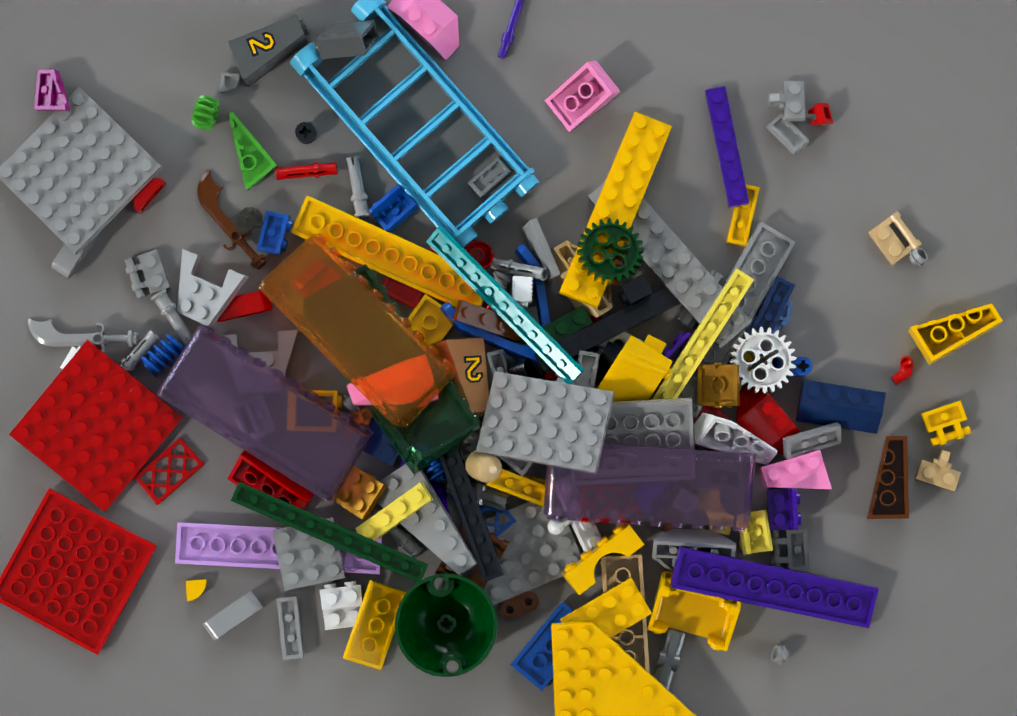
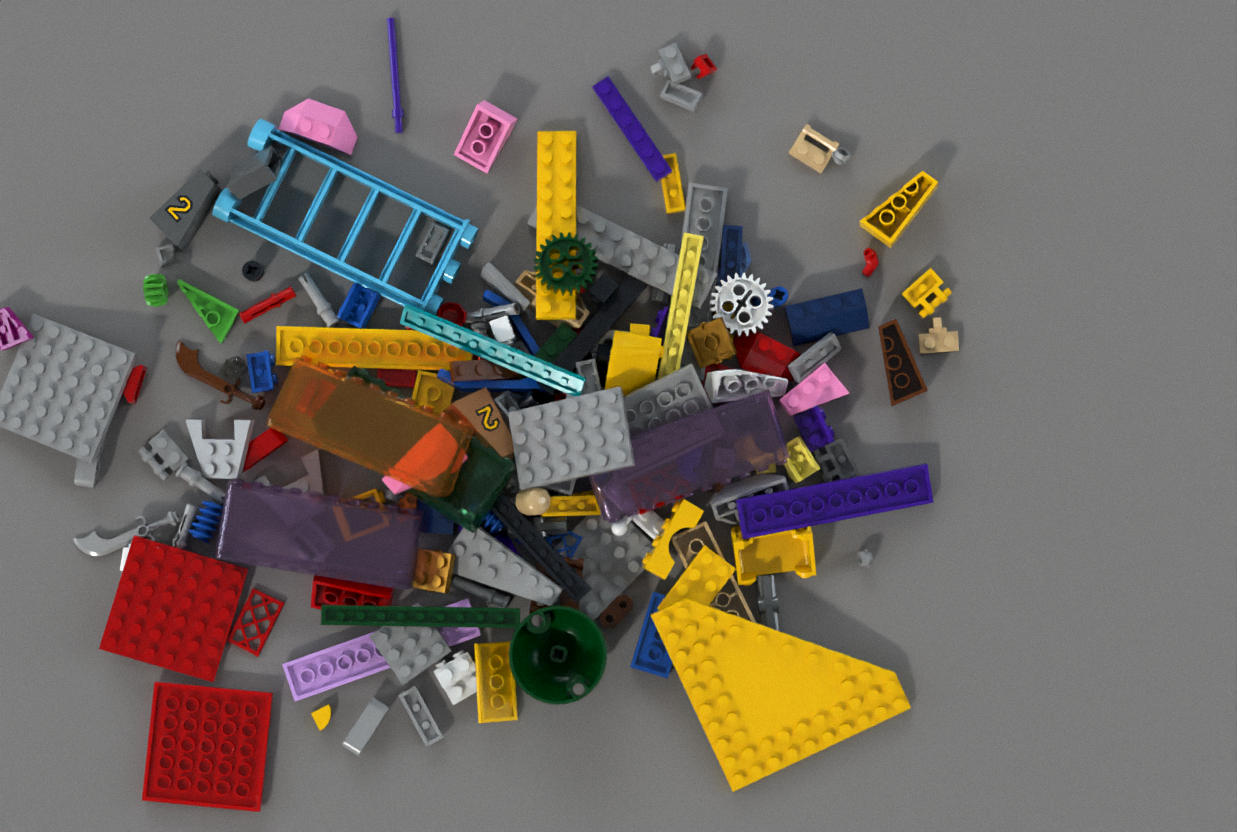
camera: 20 degrees left, 0 degrees up
(395, 512) = (472, 574): light yellow plate -> none

